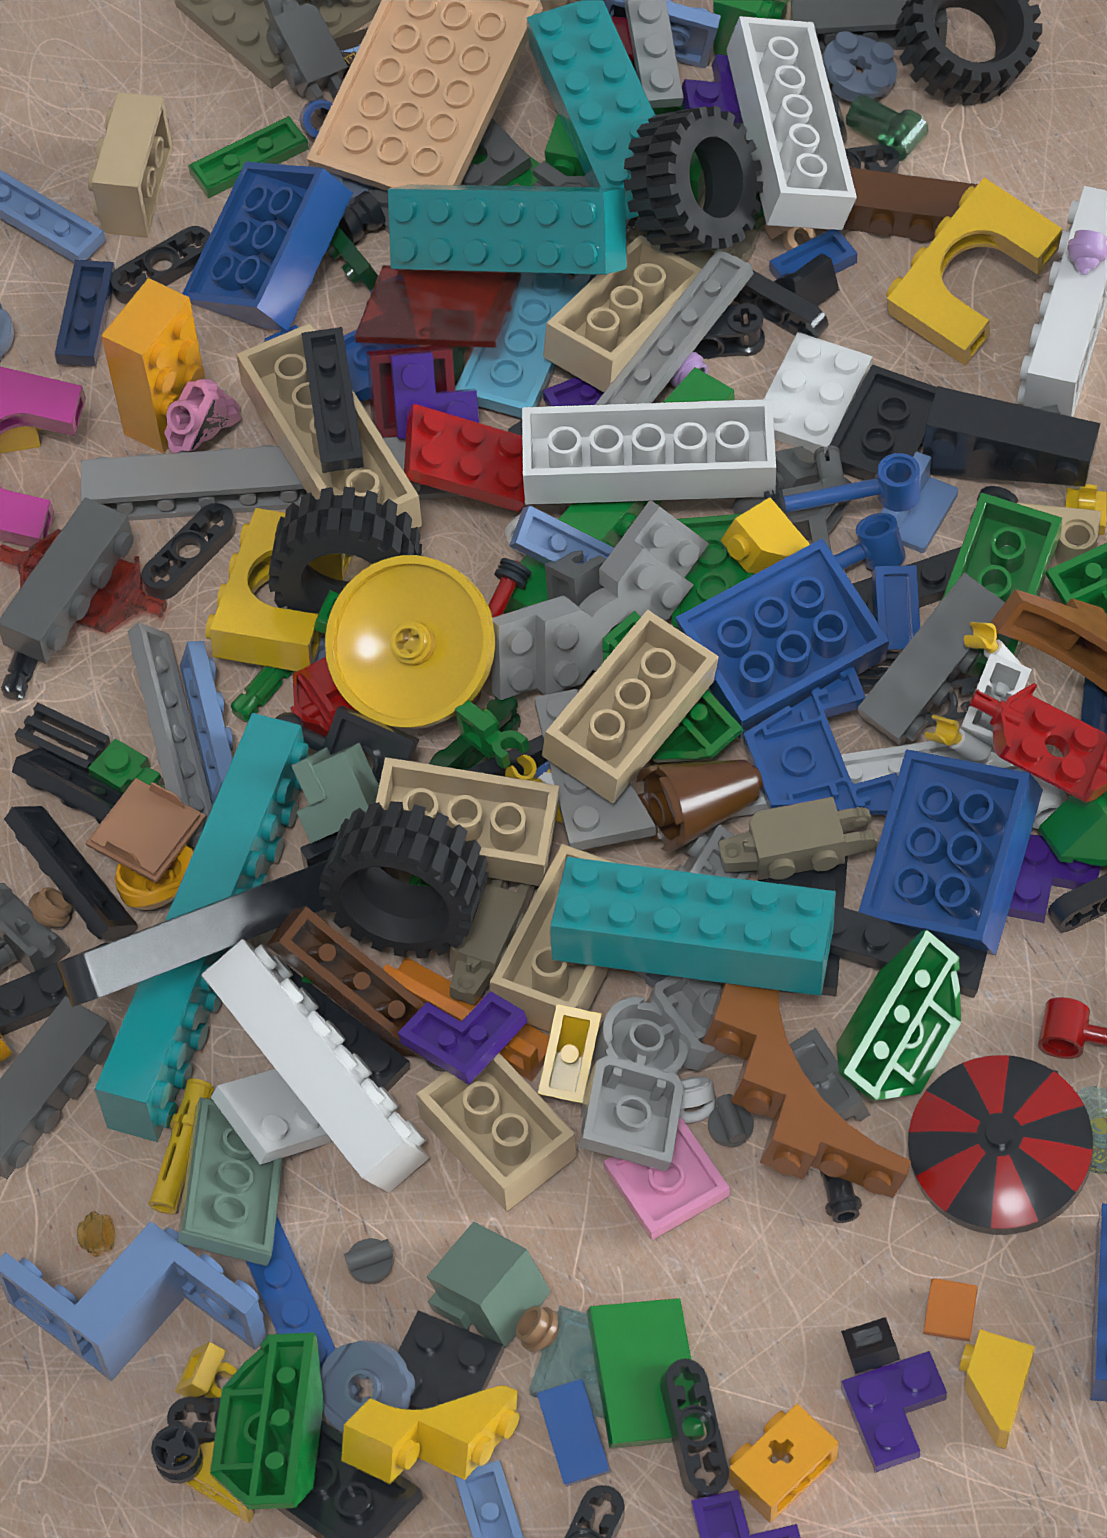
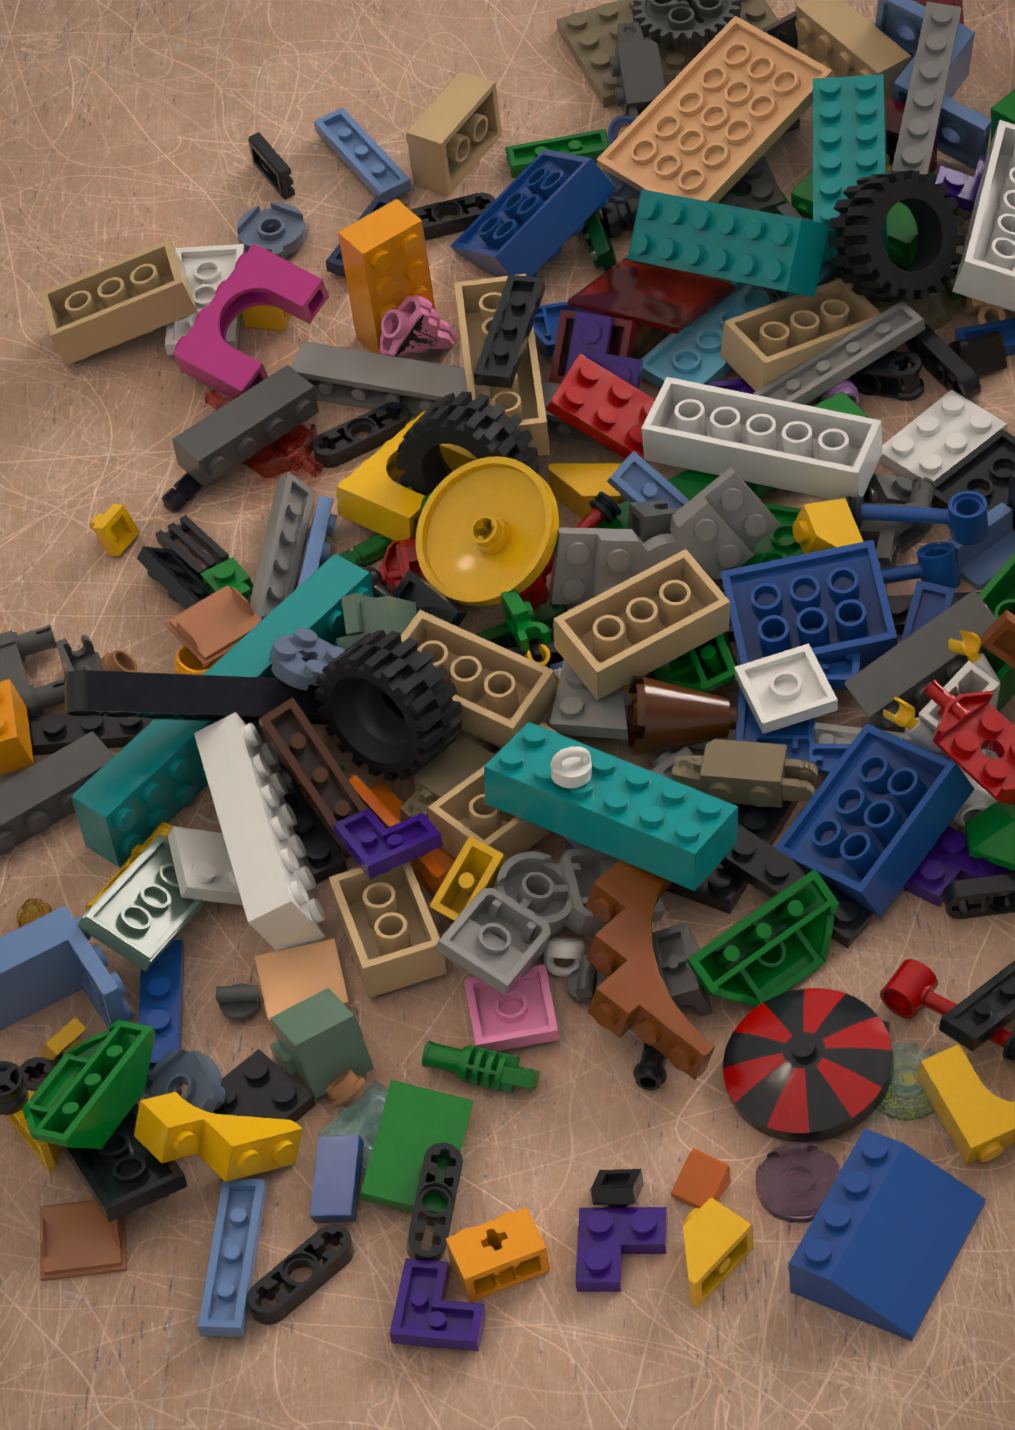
camera: 25 degrees right, 10 degrees down
(70, 872) = (142, 630): black plate -> none
(274, 837) = (301, 657): none -> sand blue plate
(424, 1215) = (298, 974): none -> light nougat tile
(472, 548) = (580, 483): none -> yellow slope
(651, 903) = (571, 767): none -> white tile
(666, 1254) = (480, 1066): none -> green hinge
(802, 732) = (786, 688): none -> white plate
(1046, 1277) = (795, 1181): none -> tile

